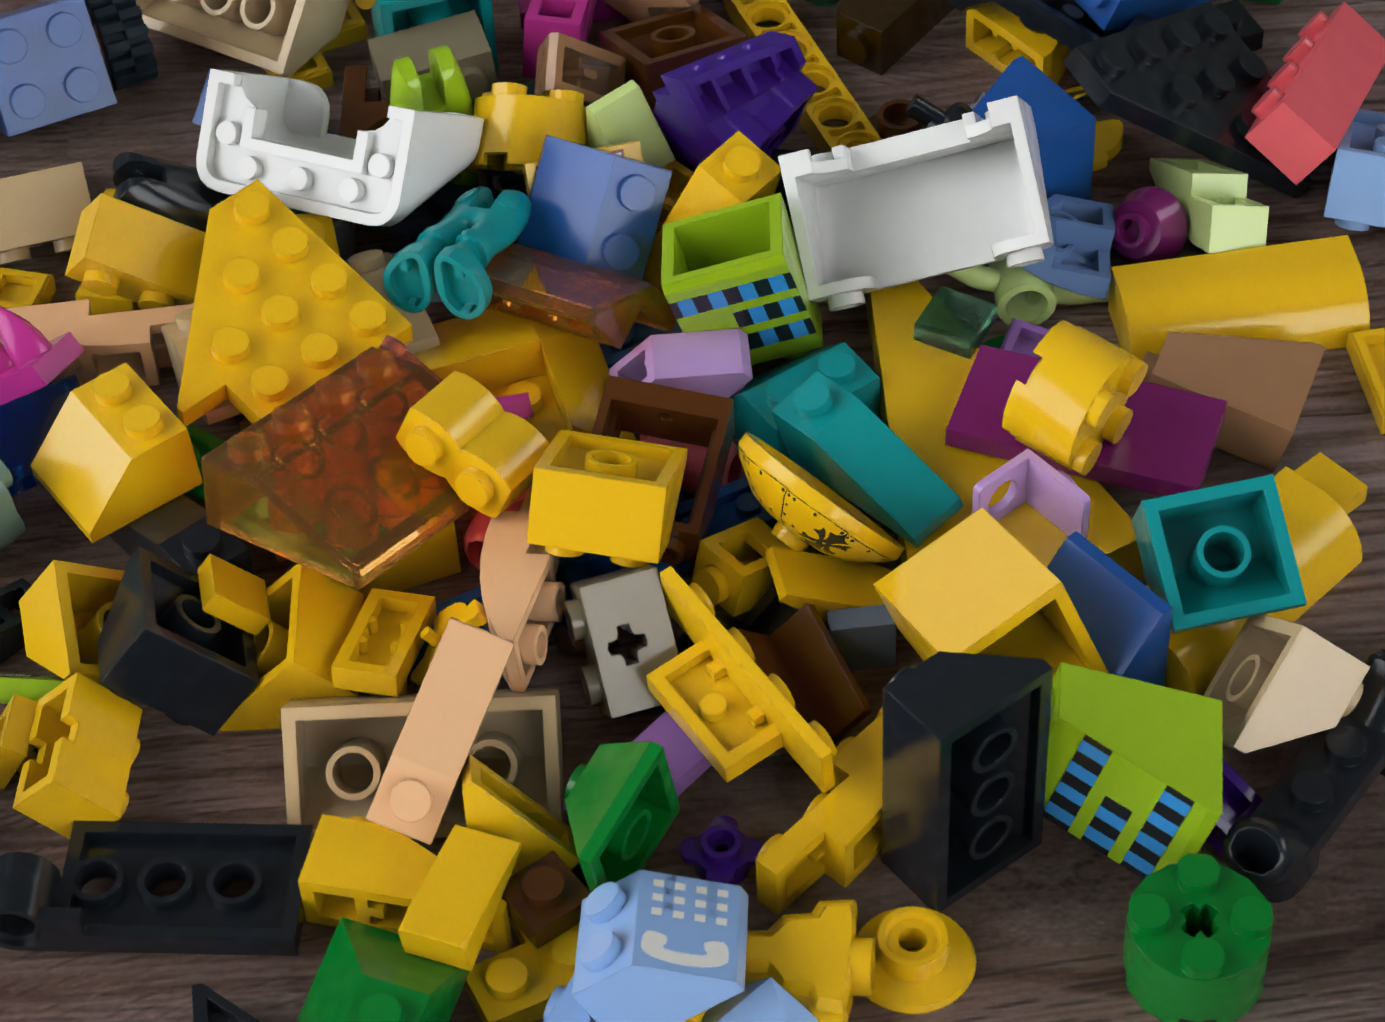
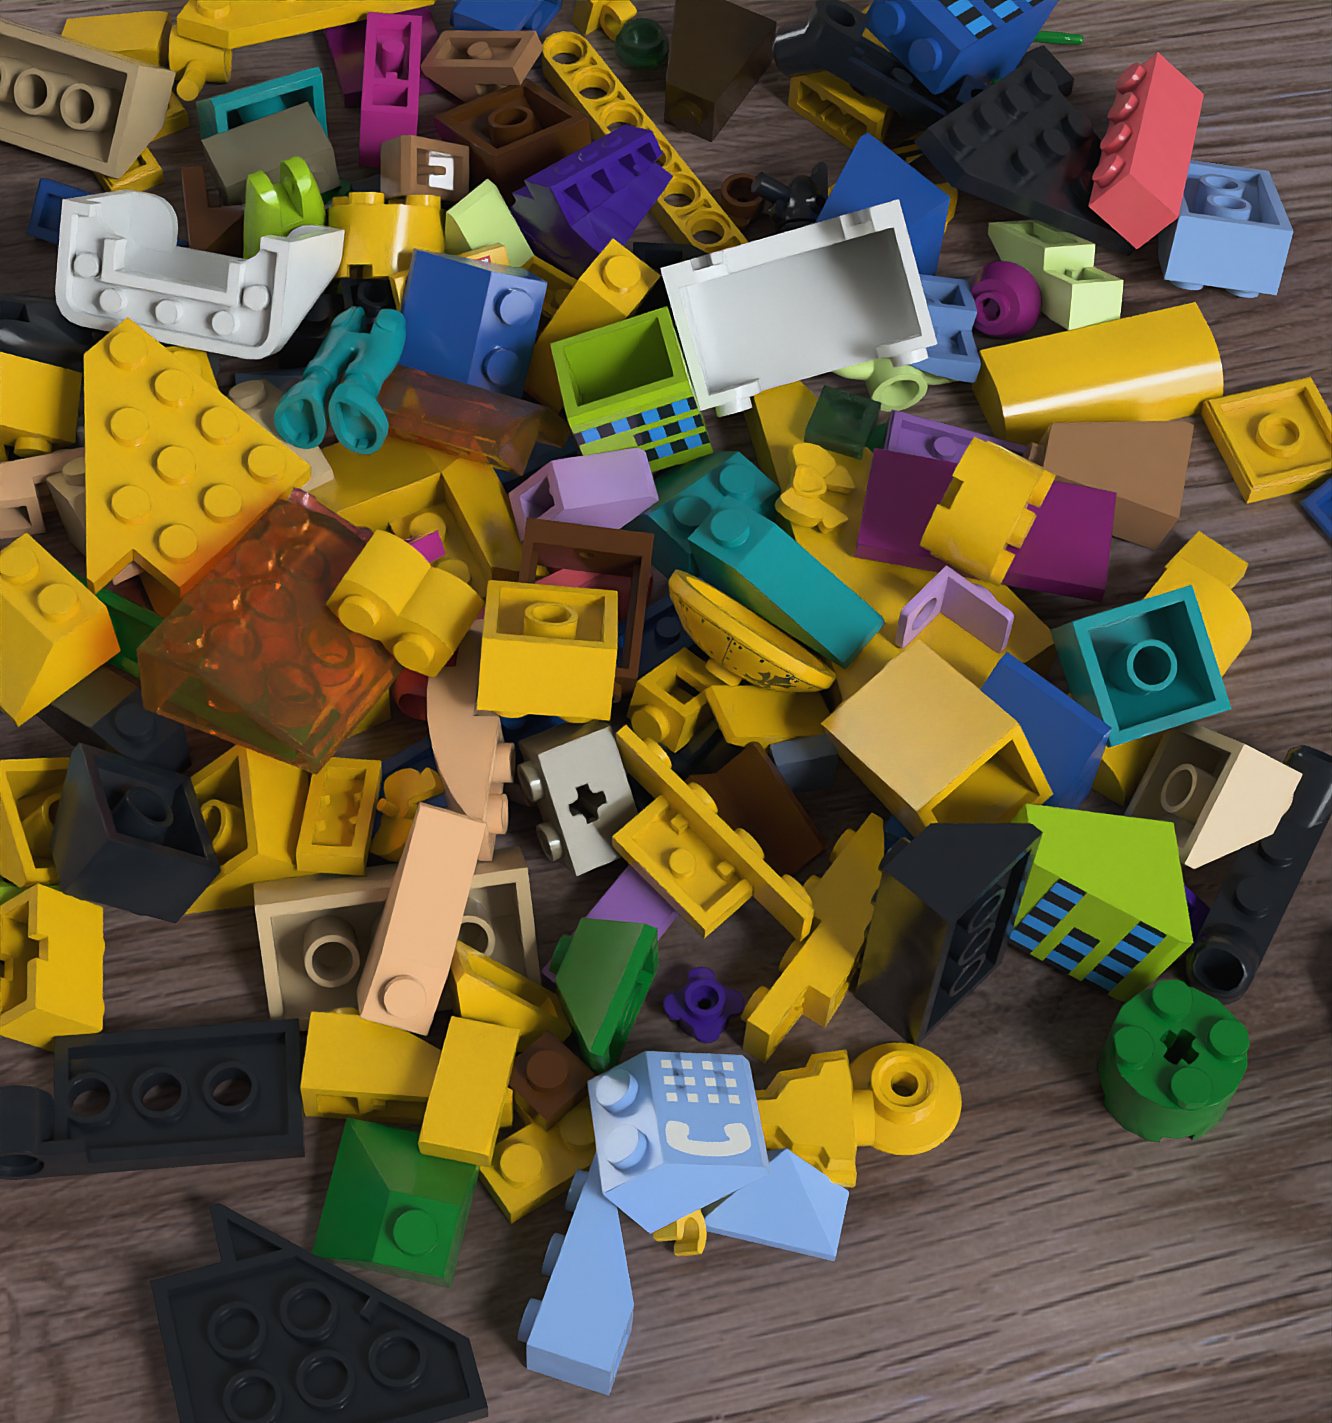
camera: 15 degrees left, 10 degrees up
(233, 595) = (178, 778): yellow tile -> none
(912, 364) = (811, 476): none -> yellow piece

